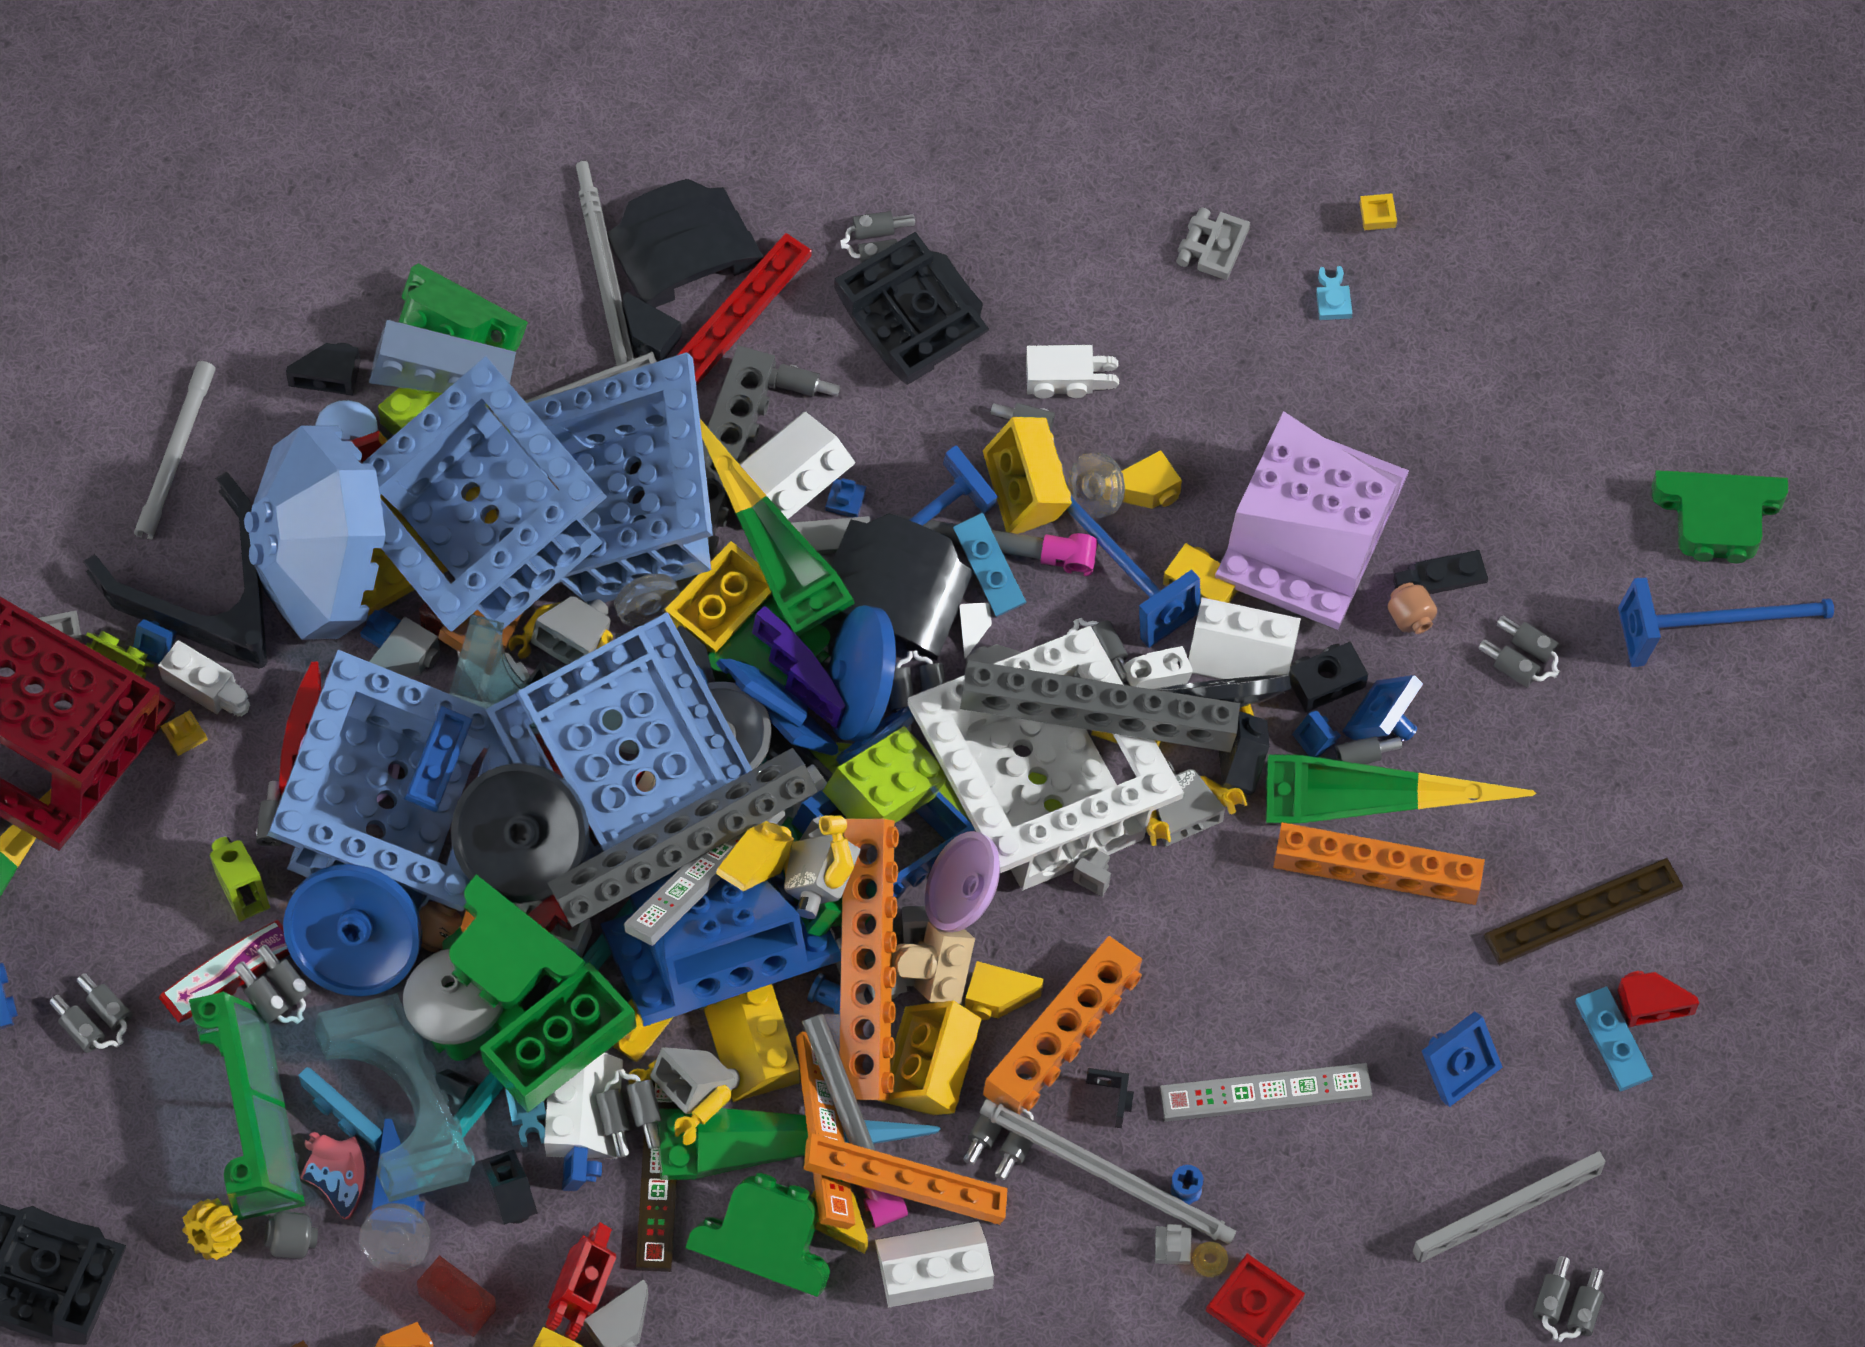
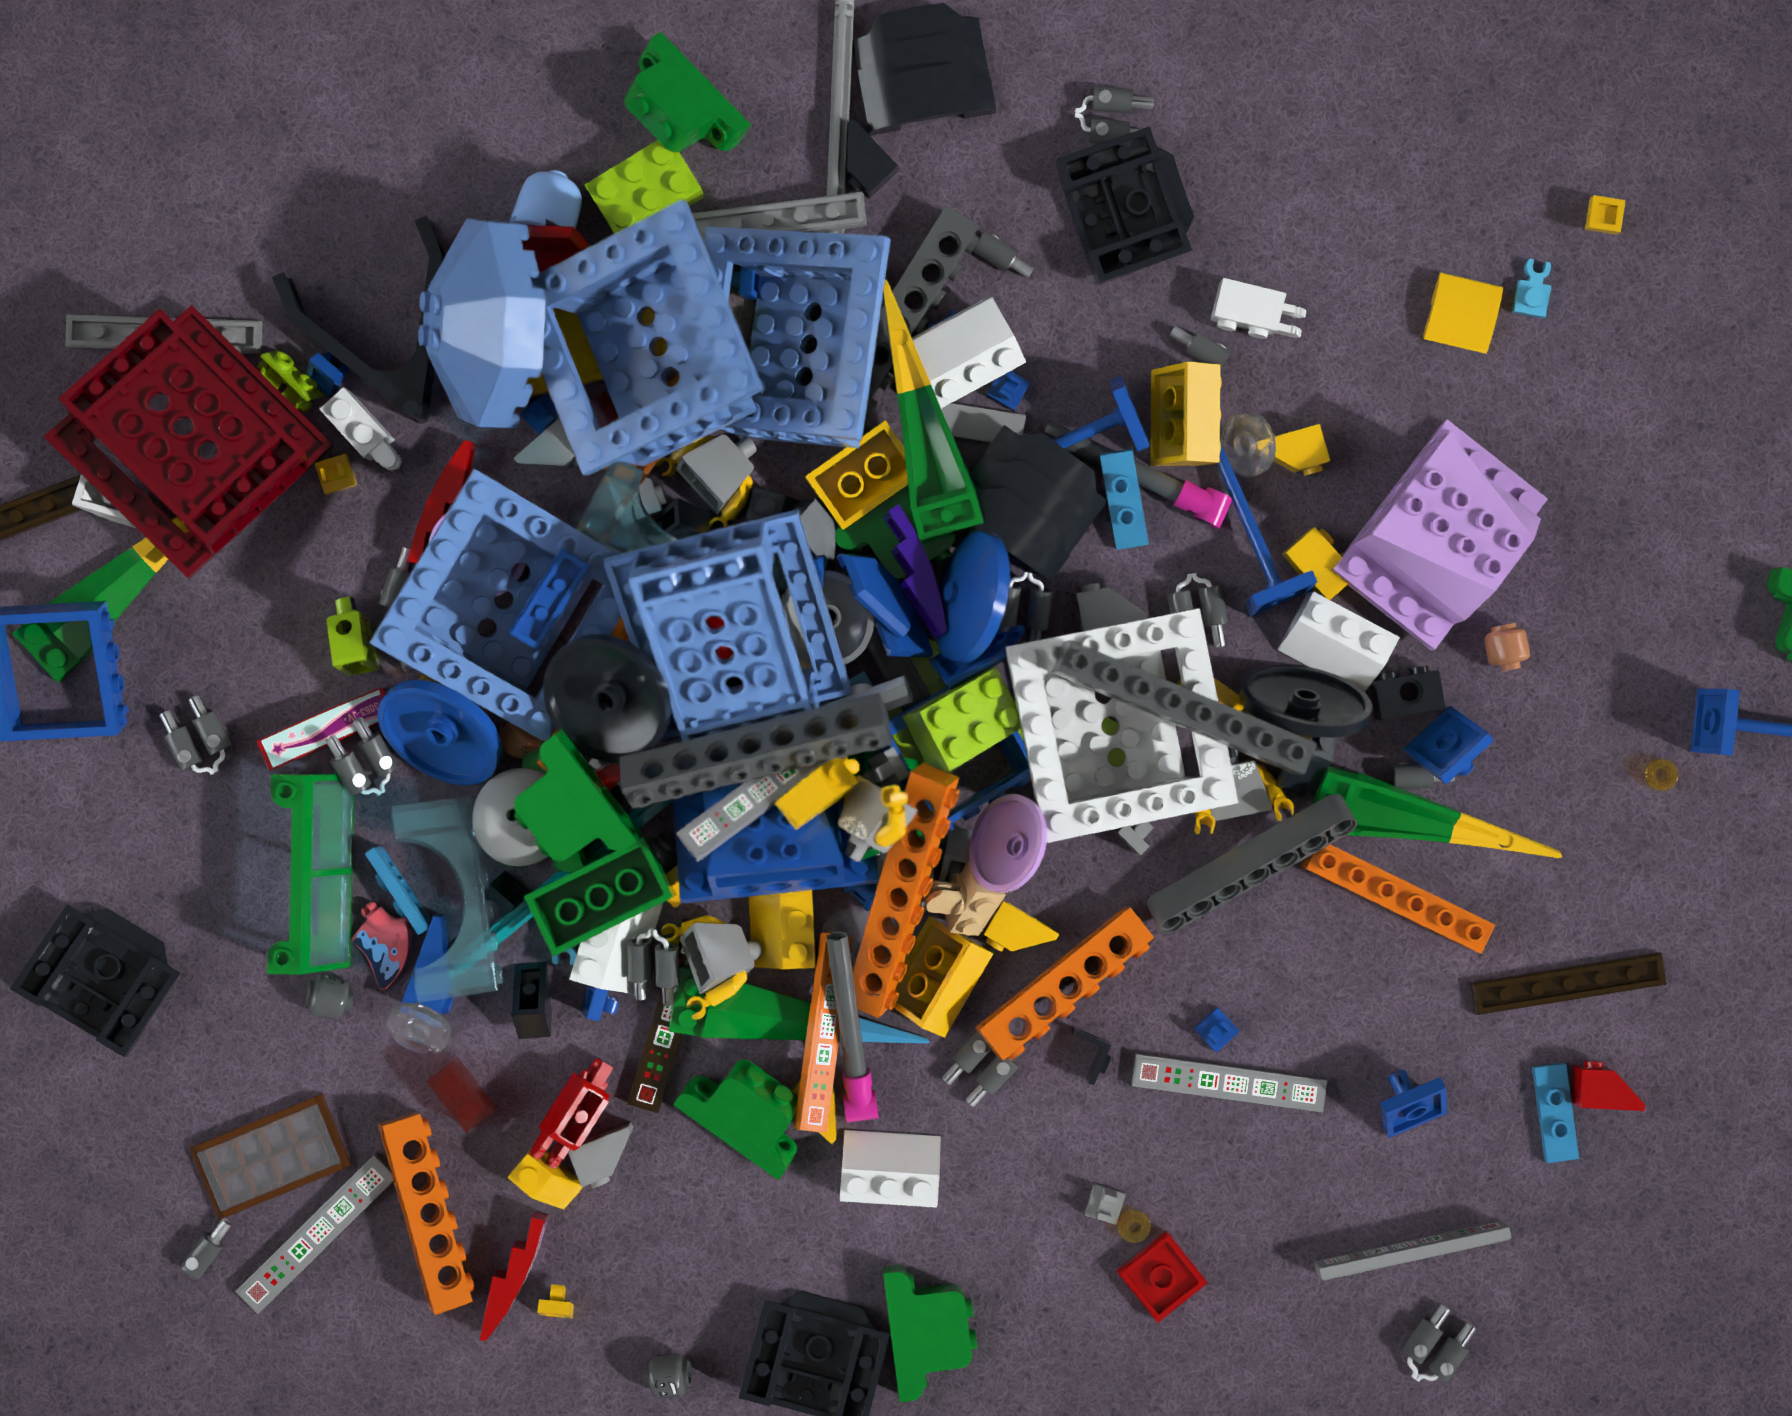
camera: 20 degrees right, 25 degrees up
(197, 390) = (421, 113): light grey piece -> none
(212, 1229) = (254, 980): yellow gear -> none
(326, 369) = (549, 124): black slope -> none
(430, 359) = (652, 164): sand blue wedge -> none
(645, 599) = (791, 455): clear tile -> none
(745, 304) = (958, 161): red plate -> none
(905, 1178) = (881, 1098): orange plate -> none
(974, 624) = (1094, 550): white sticker -> none
(1107, 1171) = (1065, 1128): light grey piece -> none
(1159, 669) = (1251, 650): white leg -> none
(1191, 1174) = (1131, 1146): blue bush -> none
(1218, 864) = (1251, 863): none -> dark grey beam
(1222, 246) = (1442, 211): light grey plate -> none
(1236, 1043) = (1216, 1029): none -> blue tile
(1271, 328) = (1463, 312): none -> yellow slope
(1315, 734) = (1378, 750): blue tile -> none
(1445, 572) = (1547, 613): black hinge -> none
(1529, 640) = (1584, 724): dark grey piece -> none
(1612, 684) = (1671, 774): none -> clear yellow plate

